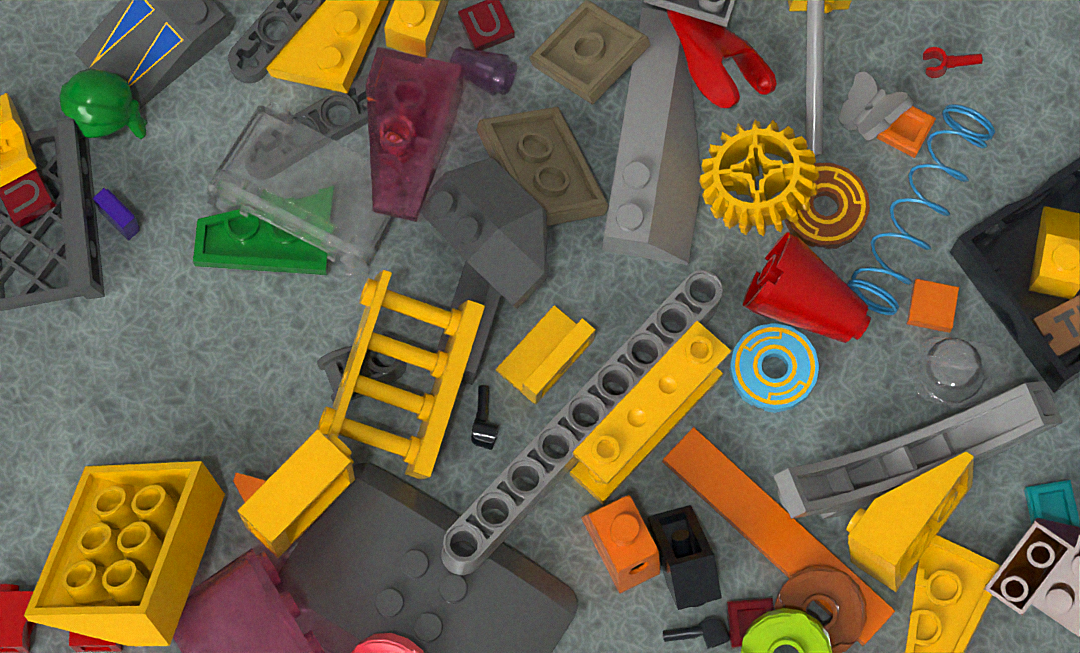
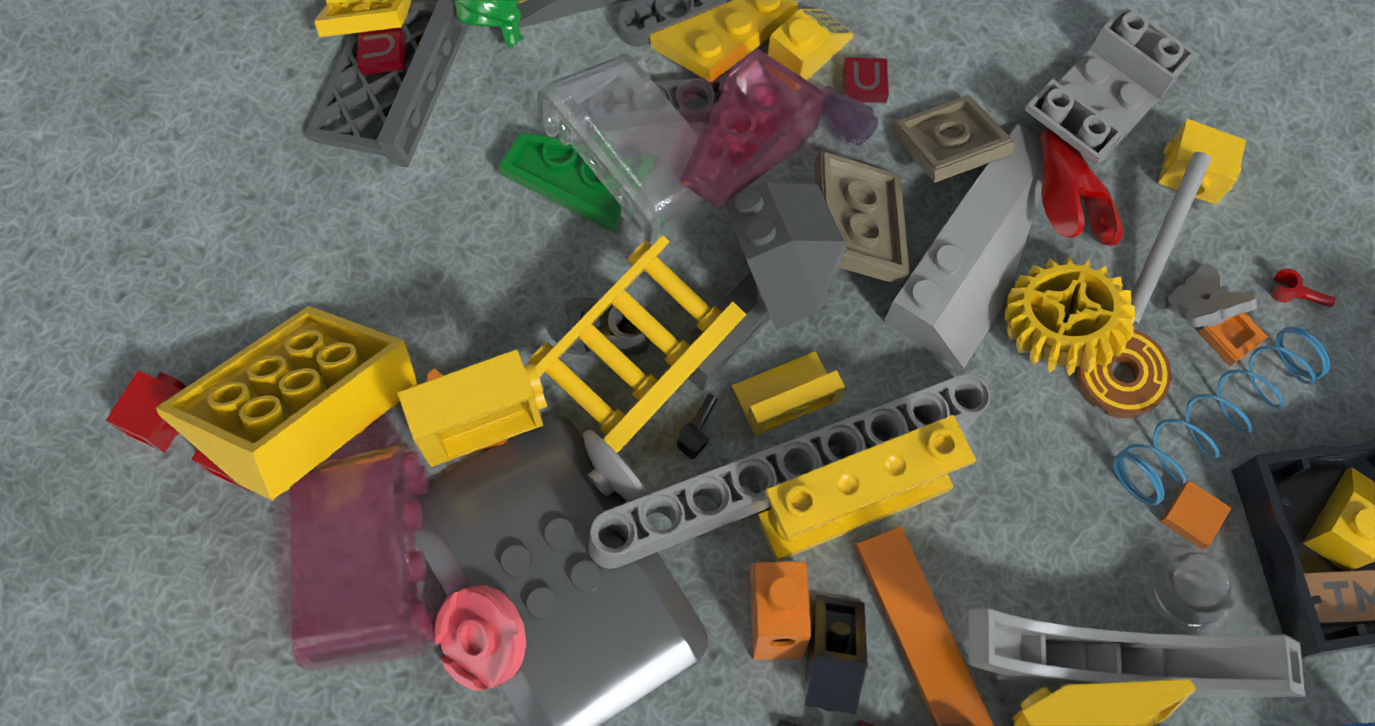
camera: 25 degrees right, 5 degrees down
(116, 213) = (453, 98): dark purple tile -> none
(432, 492) = (610, 470): none -> light grey dish
(779, 342) = (1027, 485): medium azure tile -> none
(806, 293) = (1072, 445): red cone -> none

